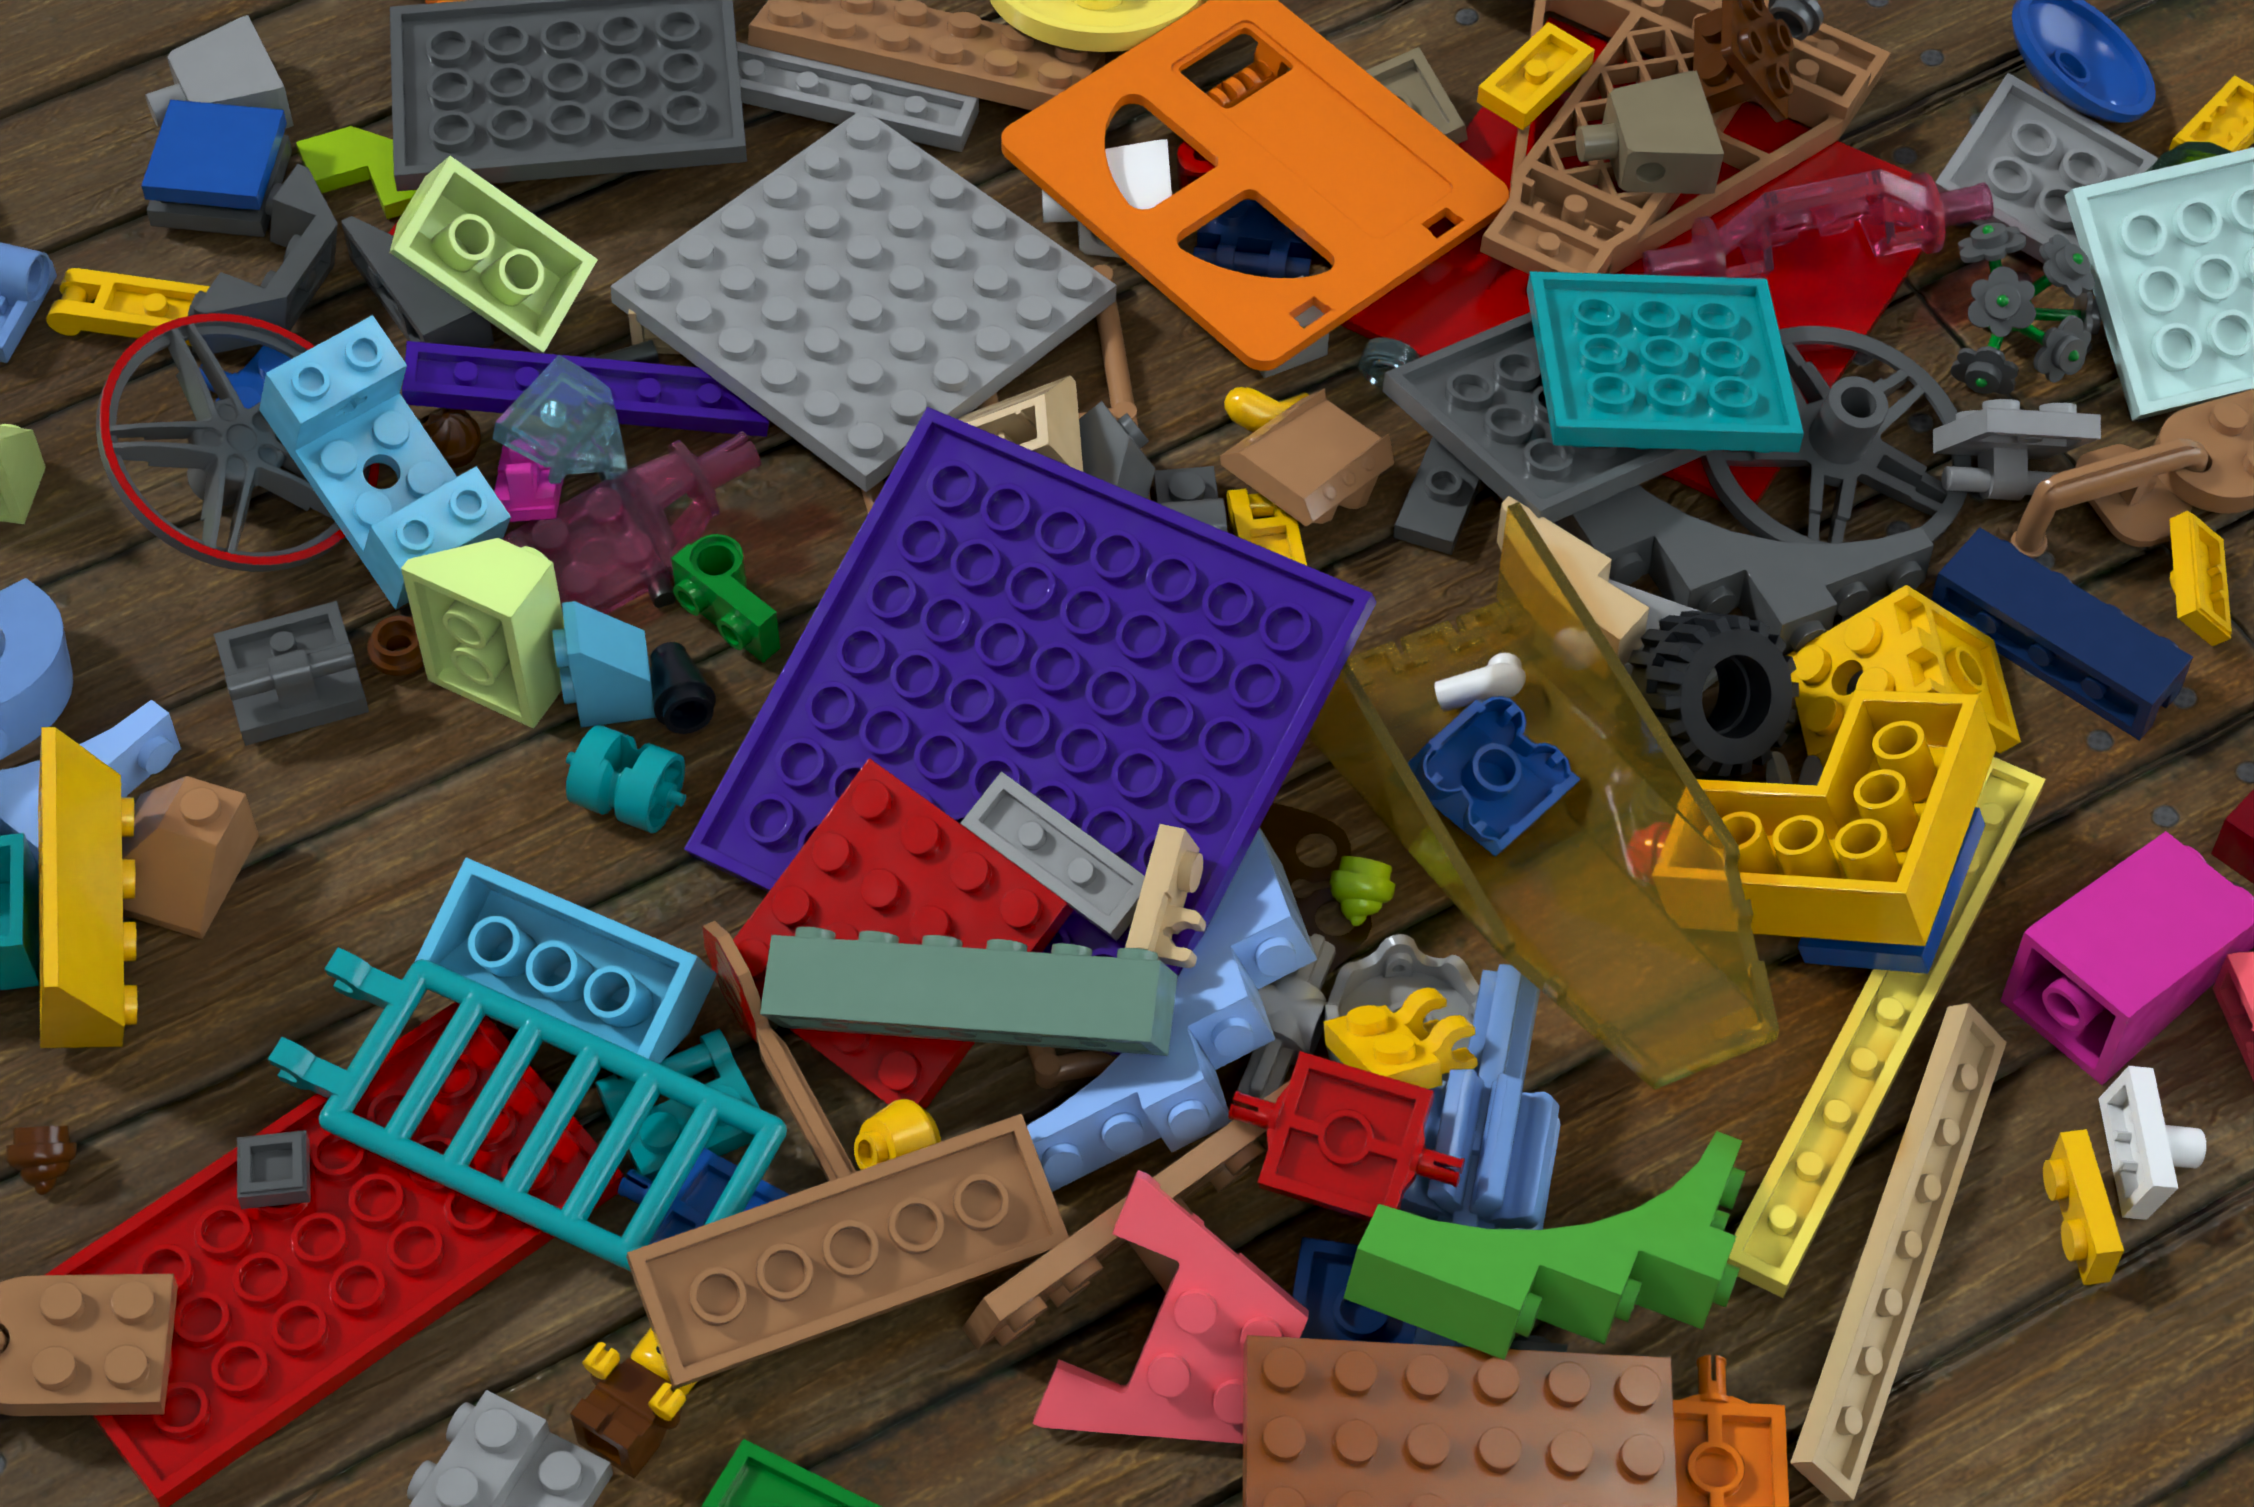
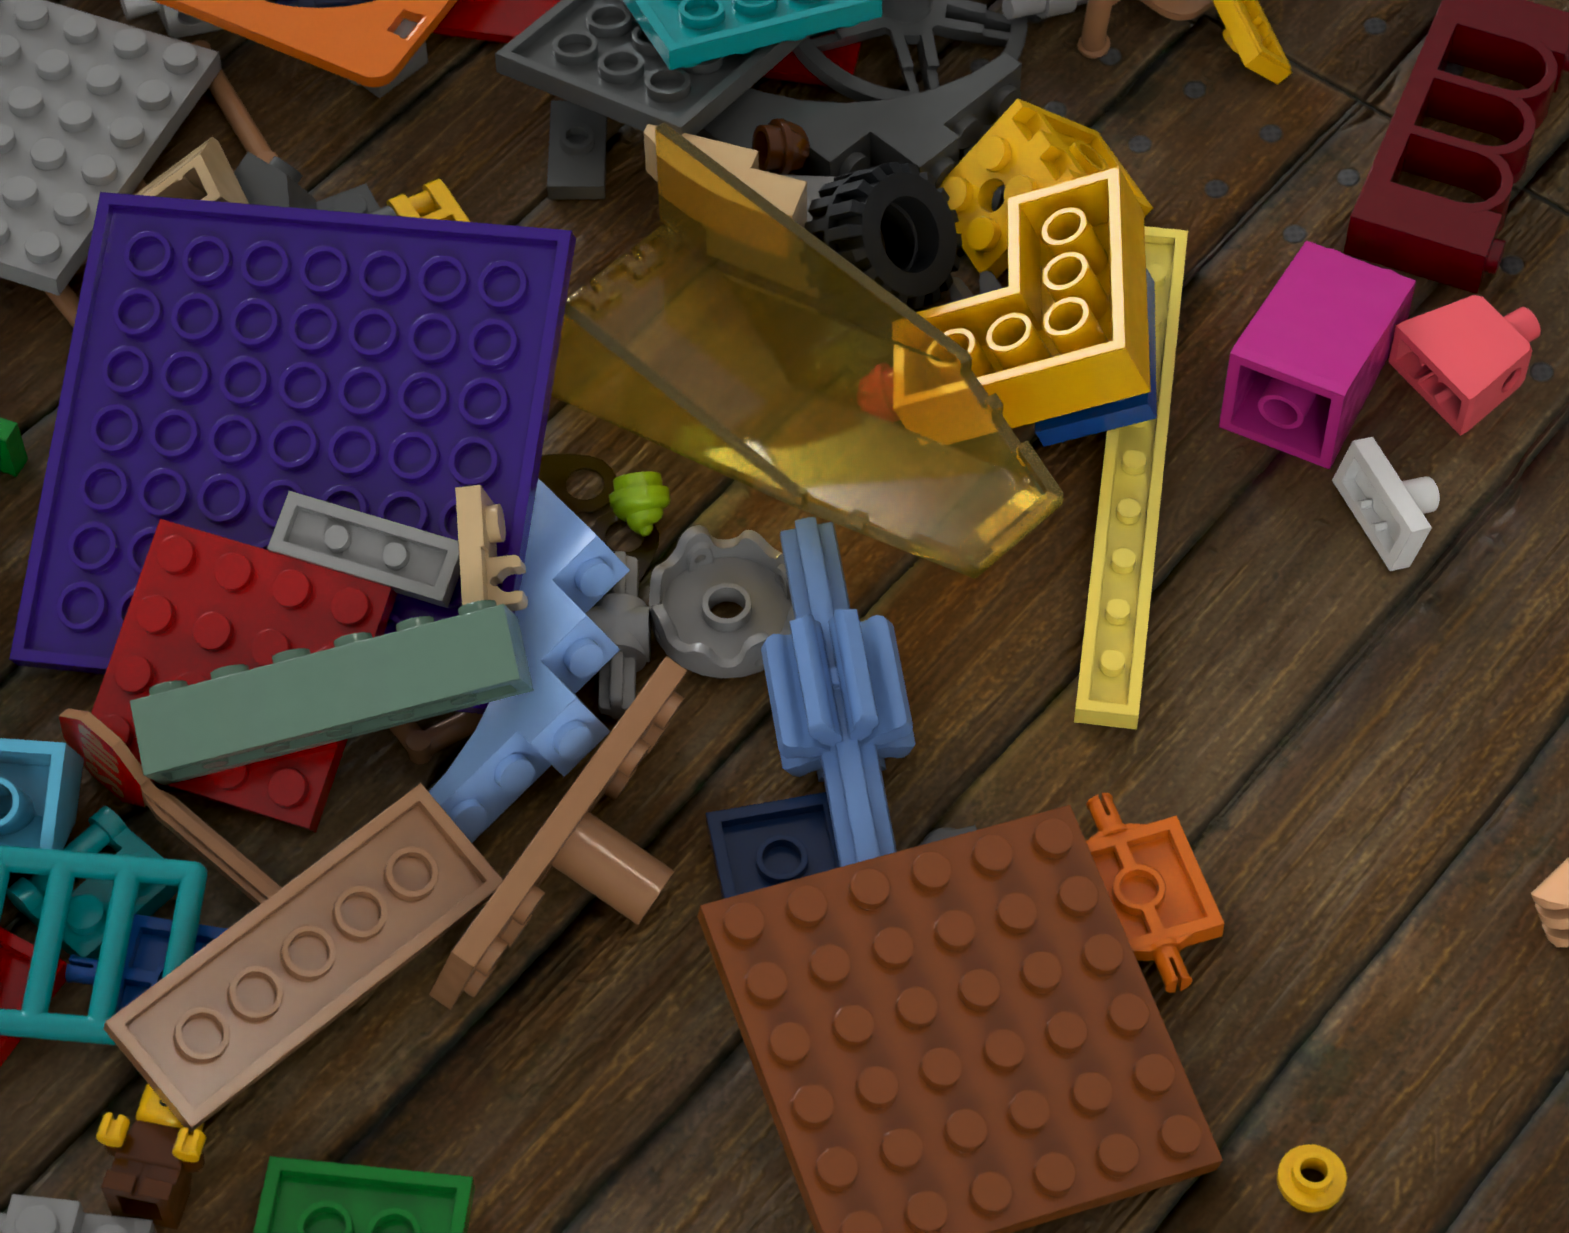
camera: 20 degrees left, 0 degrees up
(894, 1132) = (305, 841): yellow cone -> none
(1193, 1358) = (654, 944): coral wing -> none
(1254, 409) = (395, 127): yellow arm -> none
(1311, 460) = (454, 150): medium nougat slope -> none
(1345, 1138) = (723, 708): red plate -> none
(1382, 356) = (479, 49): clear light blue tile -> none
(1400, 1042) = (733, 624): yellow plate -> none
(1491, 773) = (723, 365): blue slope -> none
(1497, 1282) = (968, 762): bright green arch -> none
(1499, 678) = (690, 289): white arm -> none
(1643, 559) = (780, 146): none -> reddish brown plate
(1898, 1255) = (1221, 661): tan plate -> none
(2062, 633) = (1155, 107): dark blue brick -> none
(2088, 1226) = (1359, 570): yellow plate -> none

